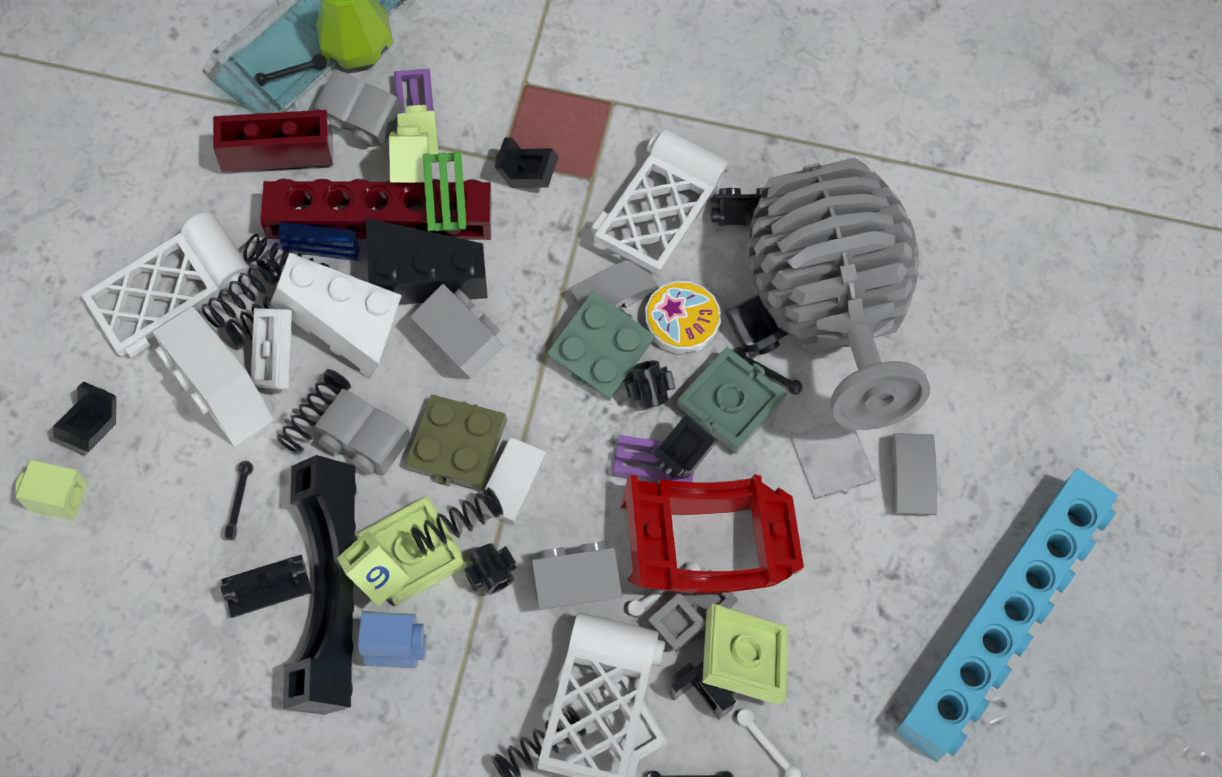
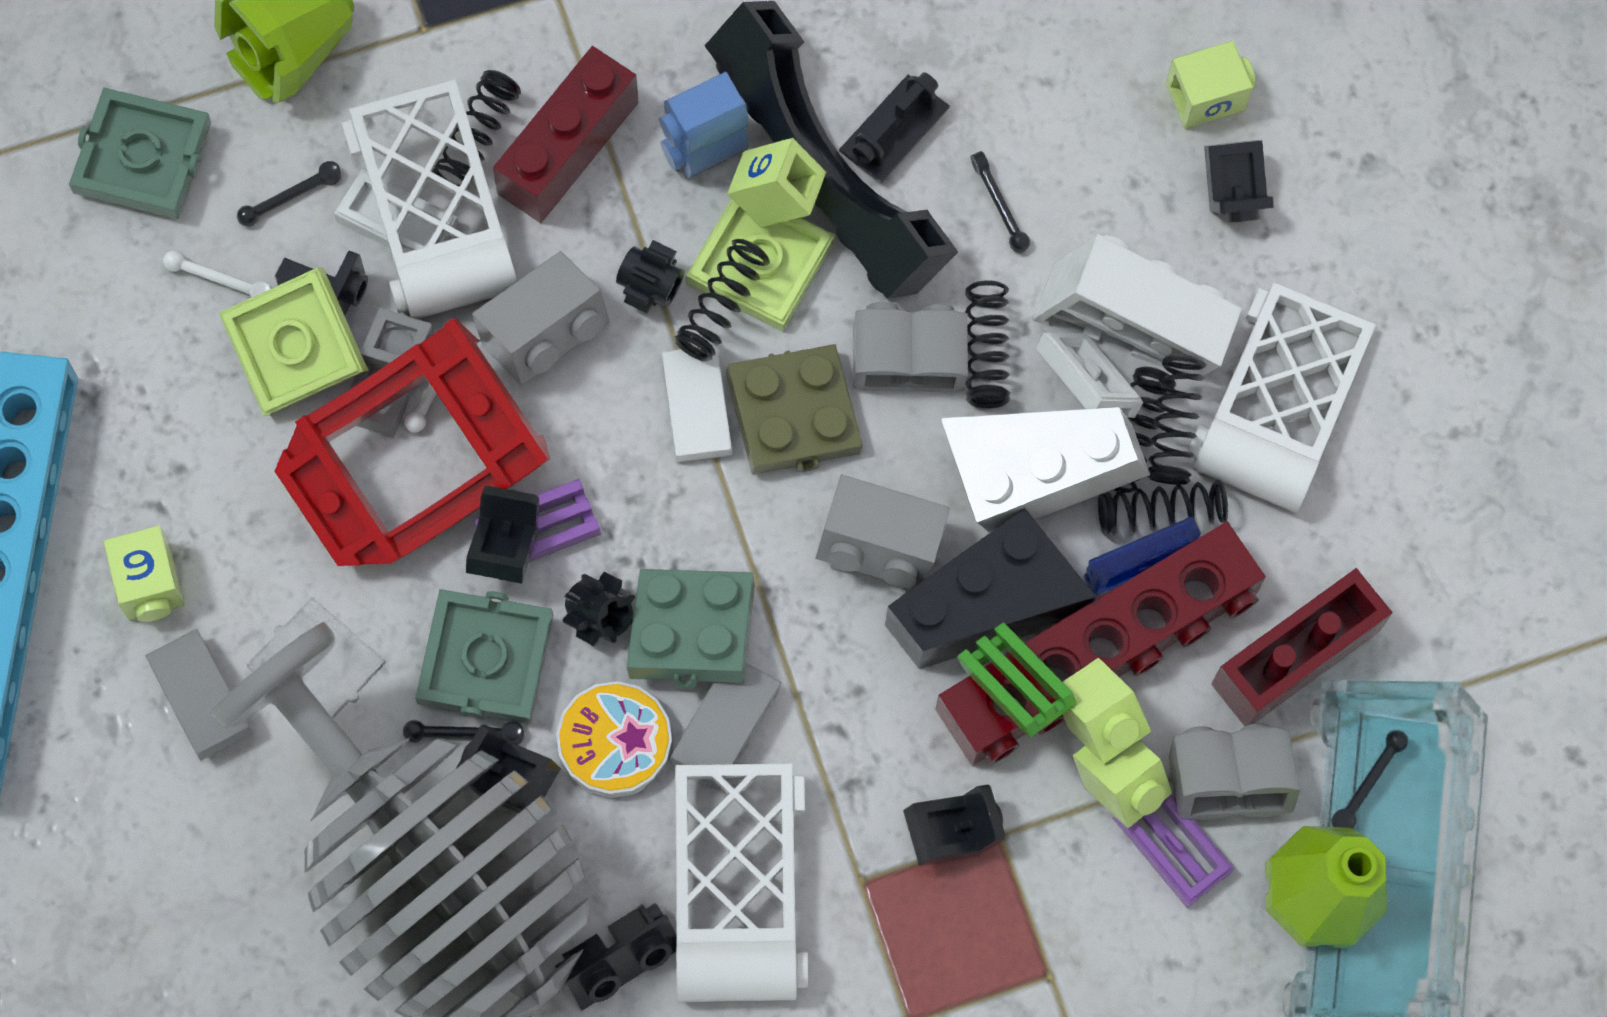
camera: 150 degrees right, 5 degrees up
(482, 699) = (566, 134): none -> dark red brick
(915, 561) = (144, 574): none -> yellowish green brick

